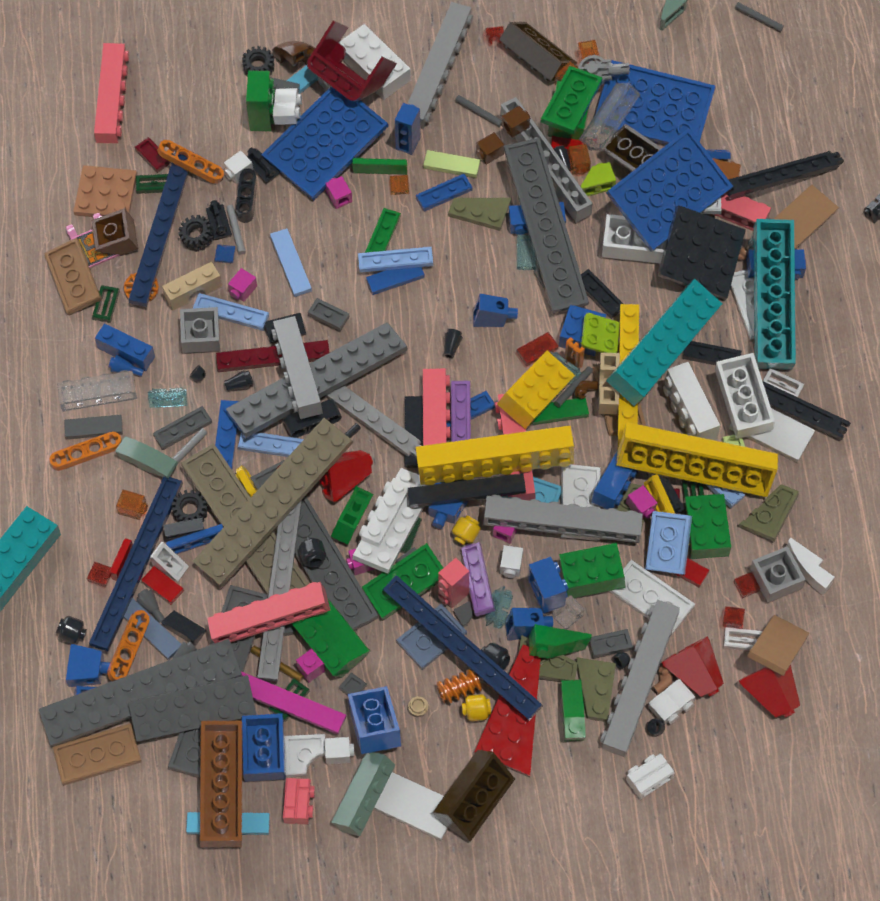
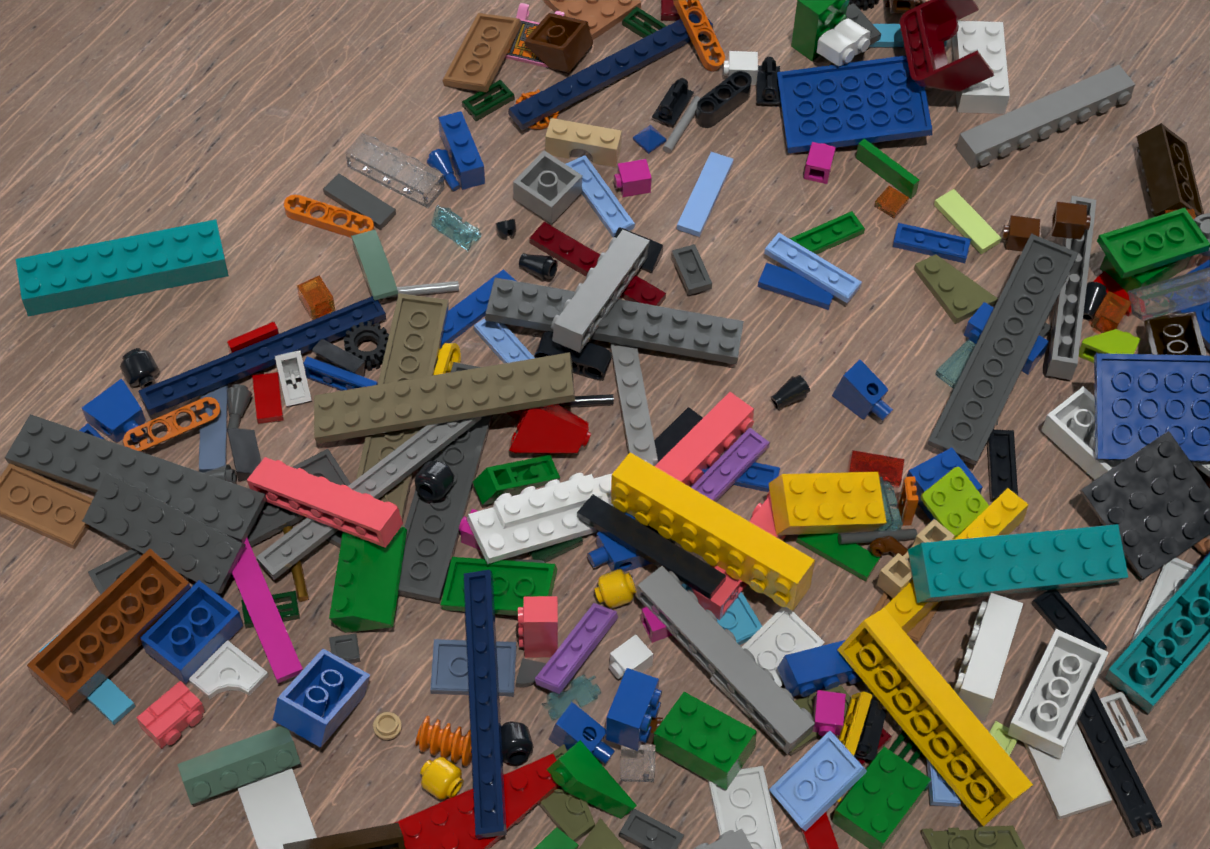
camera: 40 degrees right, 5 degrees down
(99, 574) = (218, 338): clear red plate -> none
(182, 428) = (441, 267): dark grey tile -> none
(192, 224) = (642, 106): black tyre -> none
(310, 665) = (319, 590): dark pink brick -> none
(338, 750) = (259, 698): white brick -> none
(407, 128) = (947, 148): blue brick -> none
(485, 114) = (1045, 184): dark grey bar -> none
(494, 32) = (1136, 125): clear red tile -> none

